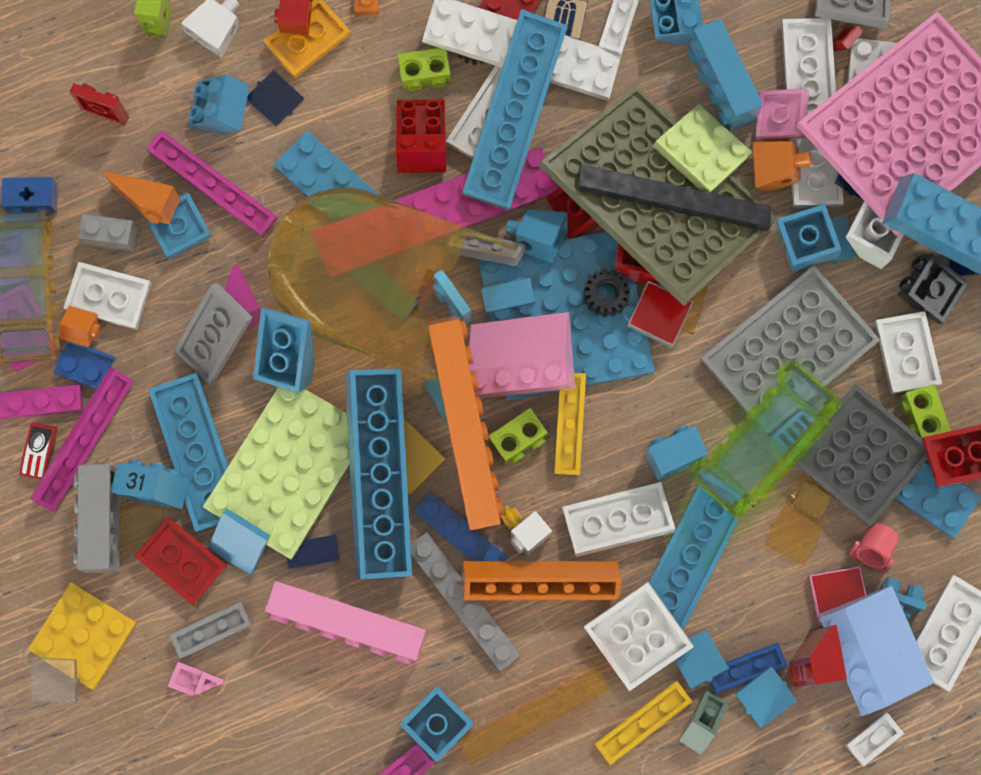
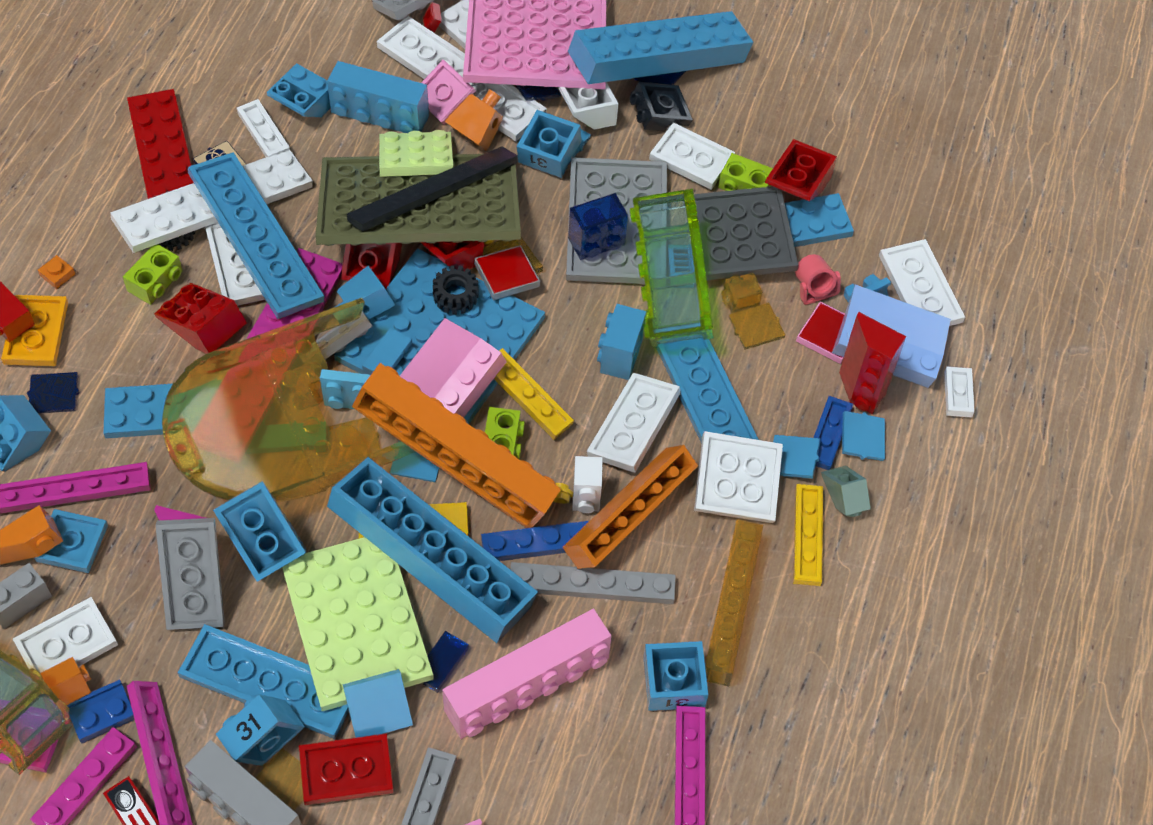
camera: 50 degrees left, 20 degrees down
(756, 348) = (597, 226): none -> clear blue brick

